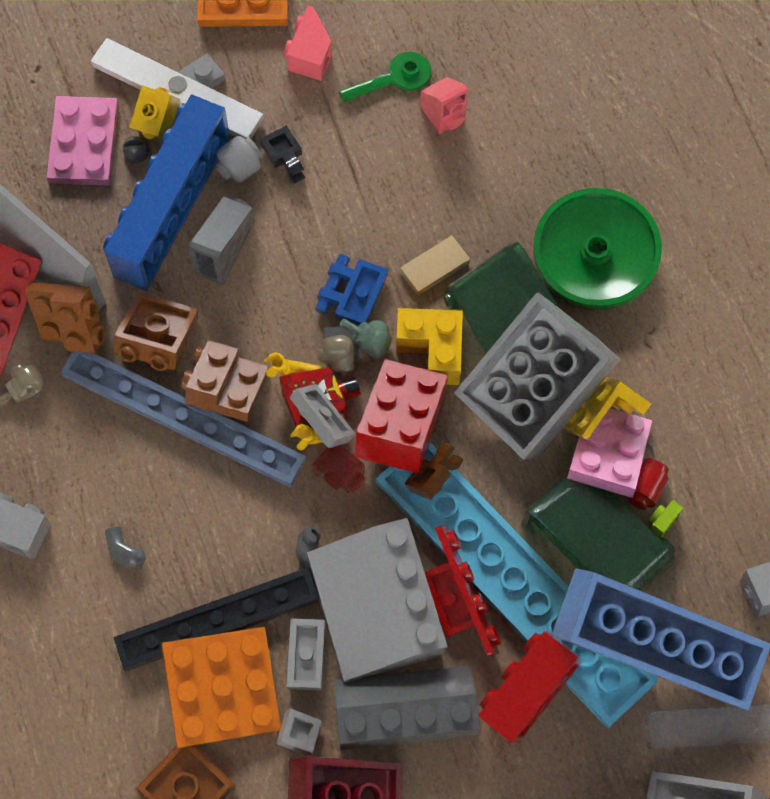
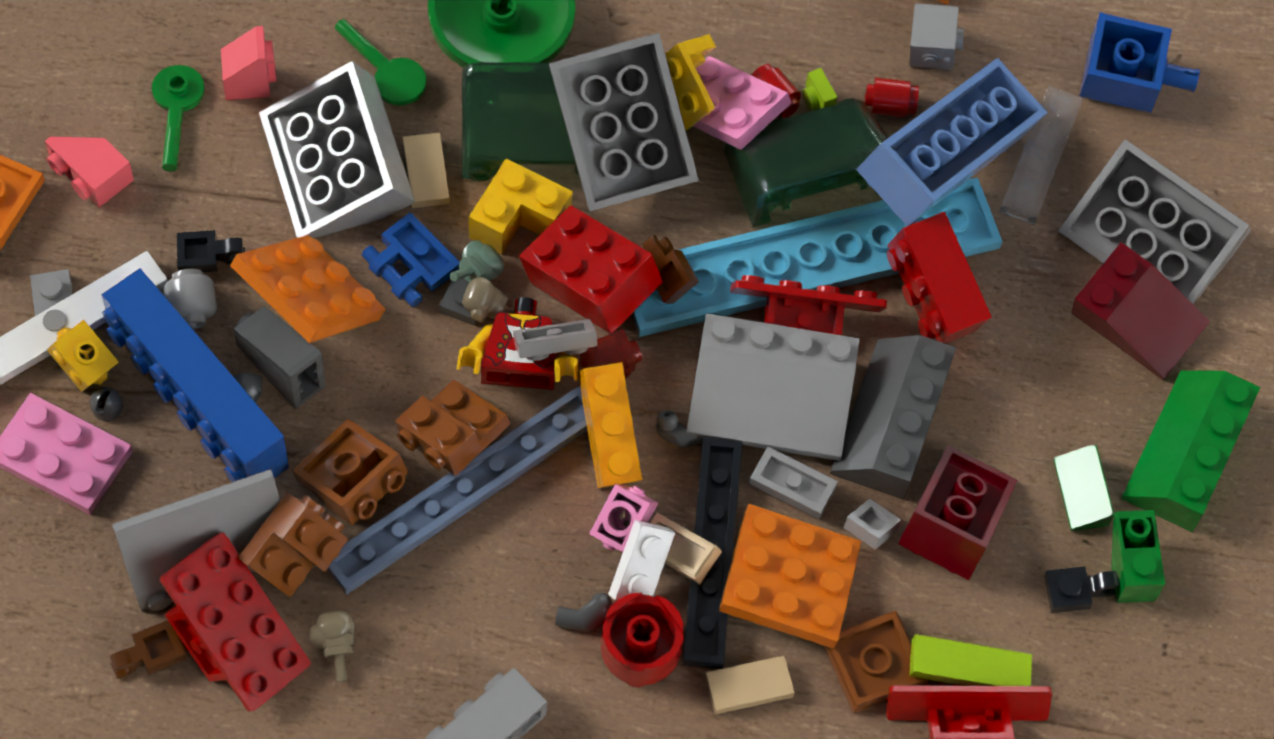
camera: 70 degrees left, 5 degrees down
(109, 580) = (646, 617): none -> red brick
(121, 698) = (749, 684): none -> tan tile
(173, 568) = (642, 560): none -> white plate
(187, 230) = (251, 384): none -> dark grey hinge
(203, 591) = (688, 552): none -> tan tile
(206, 538) = (610, 525): none -> bright pink head
(274, 491) = (609, 425): none -> light orange brick
(280, 228) = (308, 288): none -> orange plate
(411, 198) = (336, 154): none -> light grey slope
(500, 209) = (398, 79): none -> green piece
(695, 578) = (892, 97): none -> red brick

